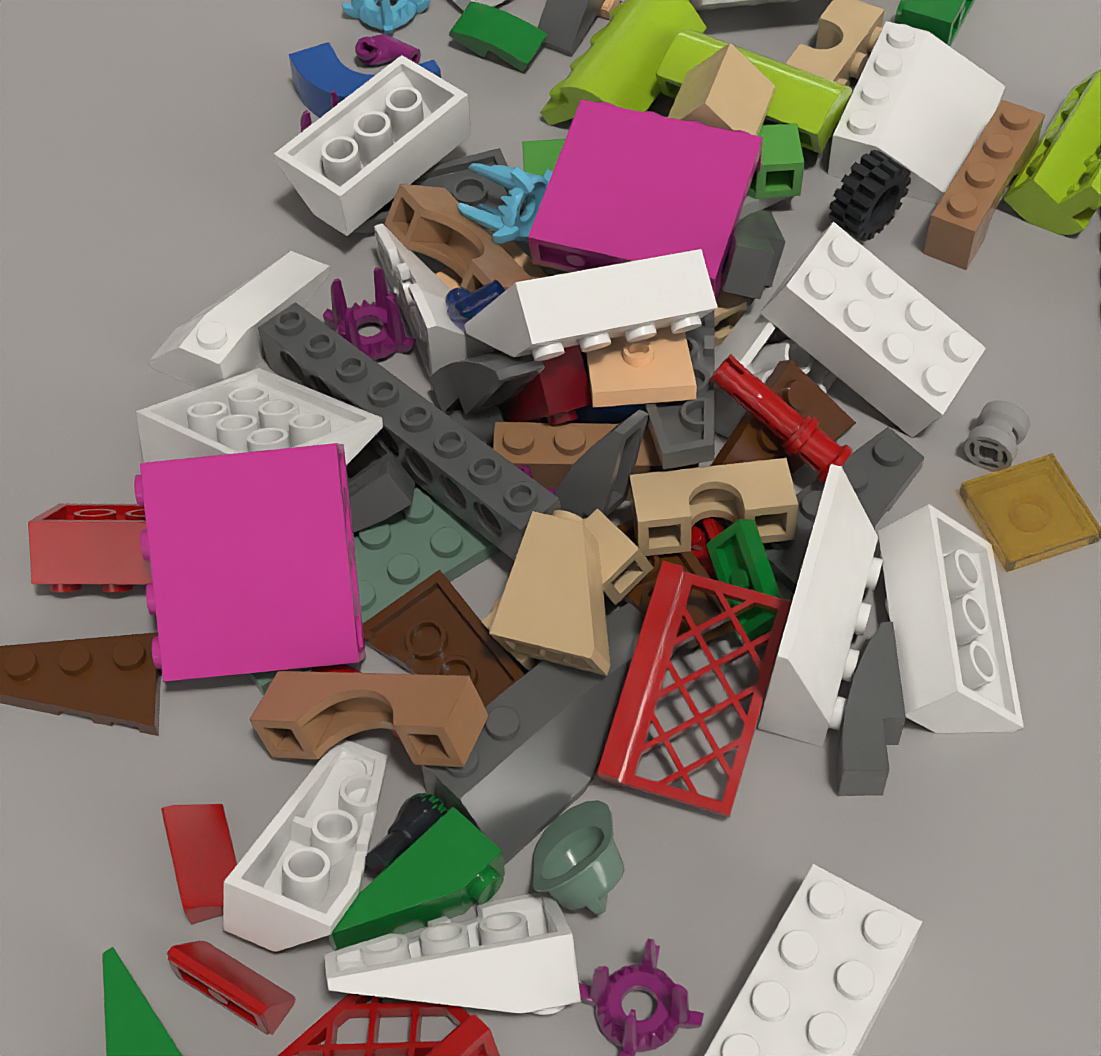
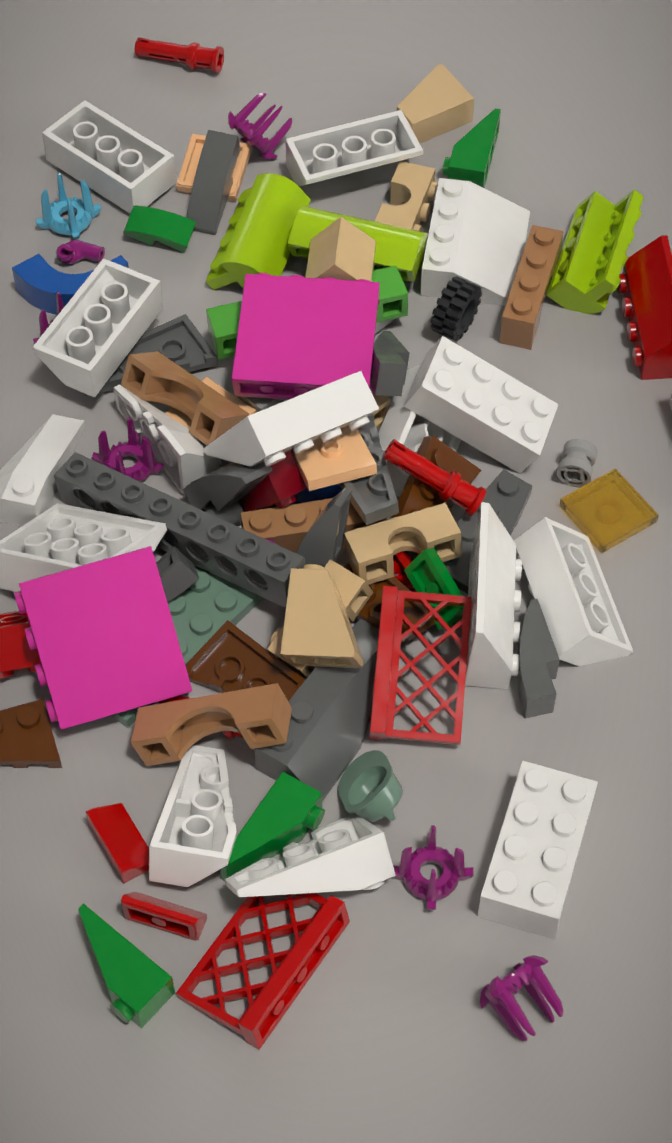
camera: 15 degrees left, 0 degrees up
(412, 821) = (255, 789): black piece -> none
(465, 305) = (202, 436): clear blue arm -> none
(507, 219) = (221, 360): medium azure piece -> none

